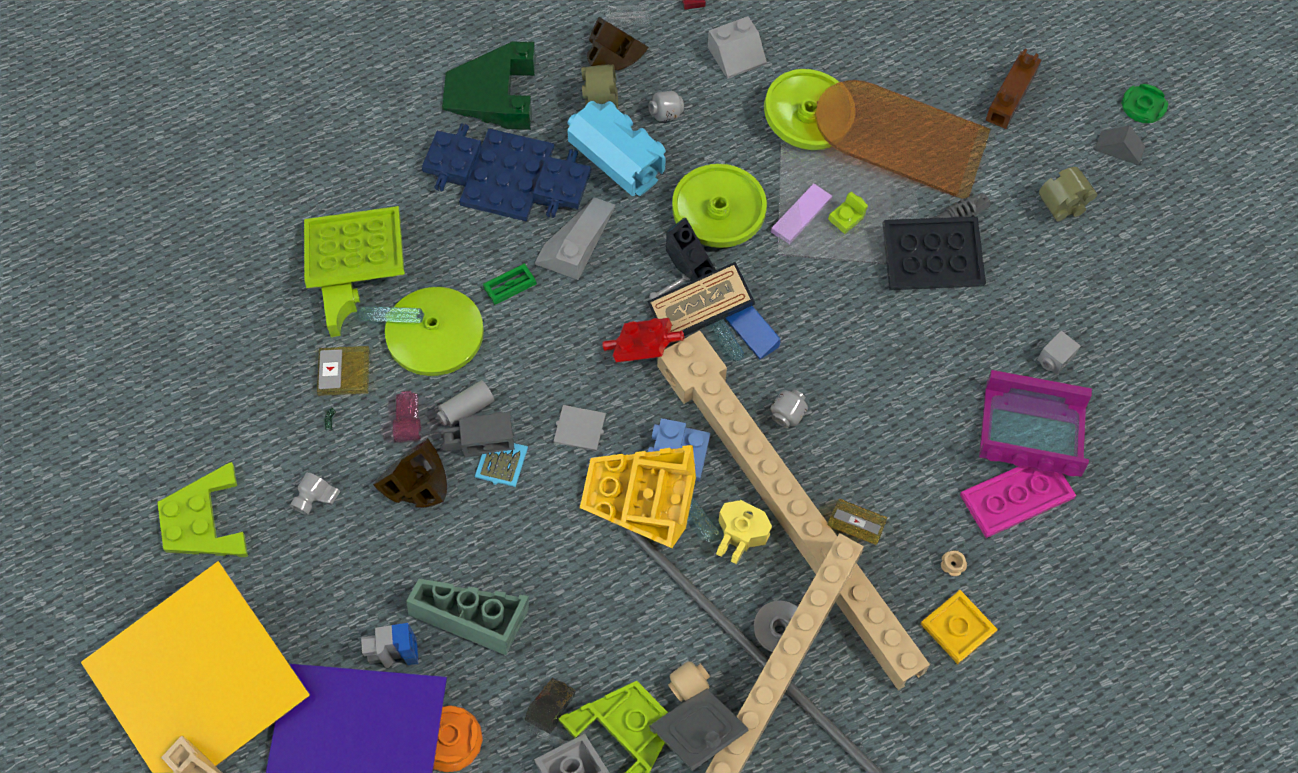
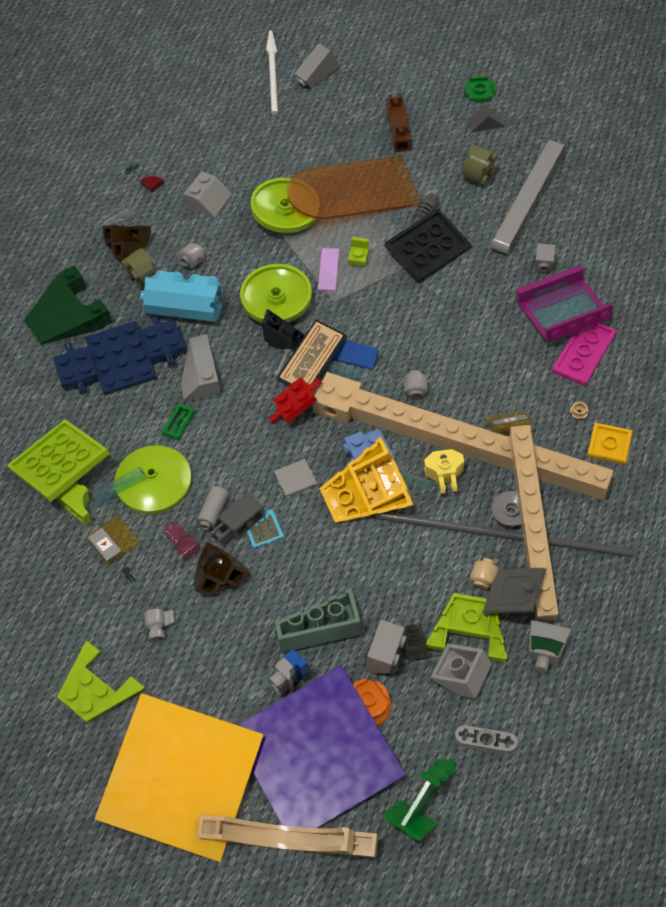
camera: 30 degrees left, 5 degrees down
(509, 690) = (384, 648): none -> light grey slope
(1097, 266) = (528, 195): none -> light grey beam

